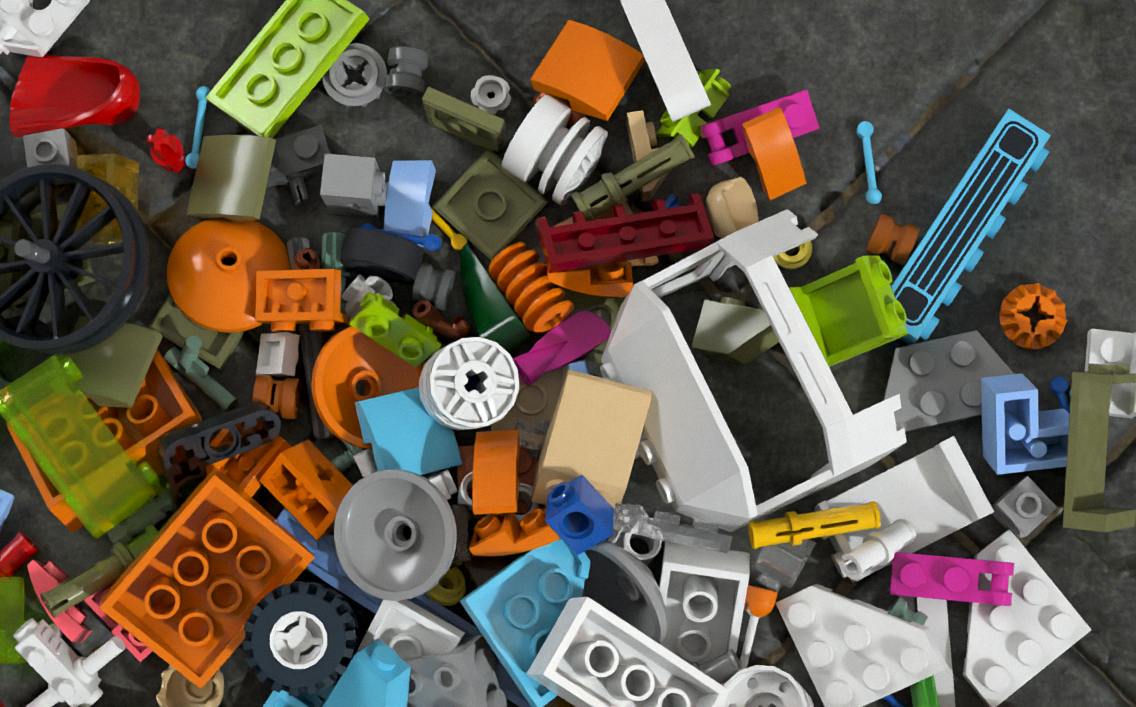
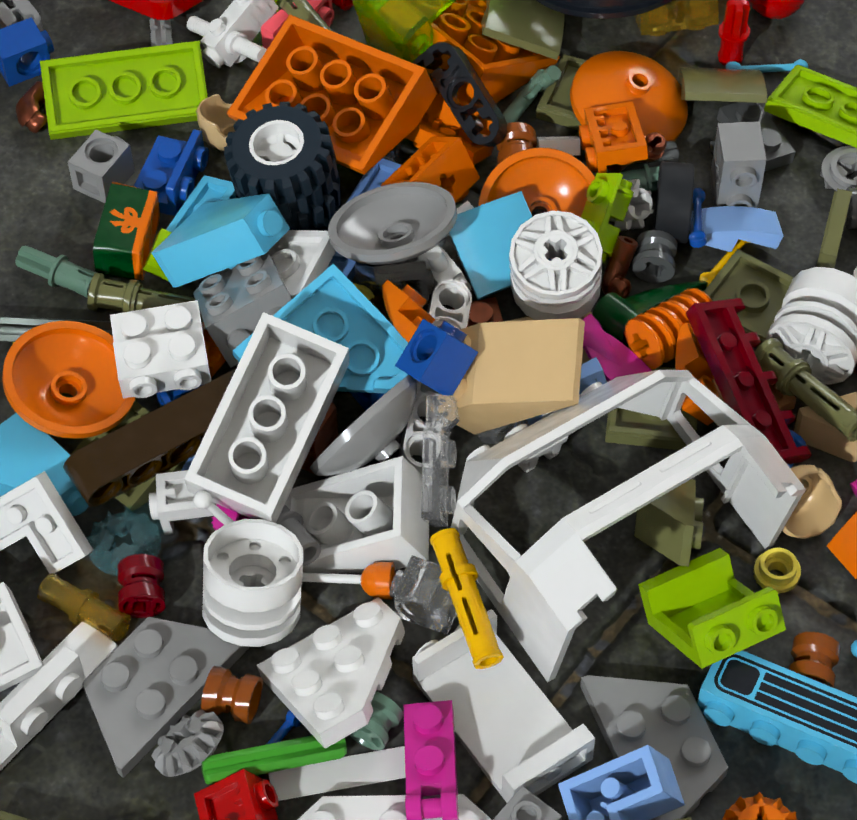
camera: 80 degrees right, 25 degrees down
(496, 472) = (465, 296): orange slope -> none
(878, 548) = (451, 673): white pin -> none

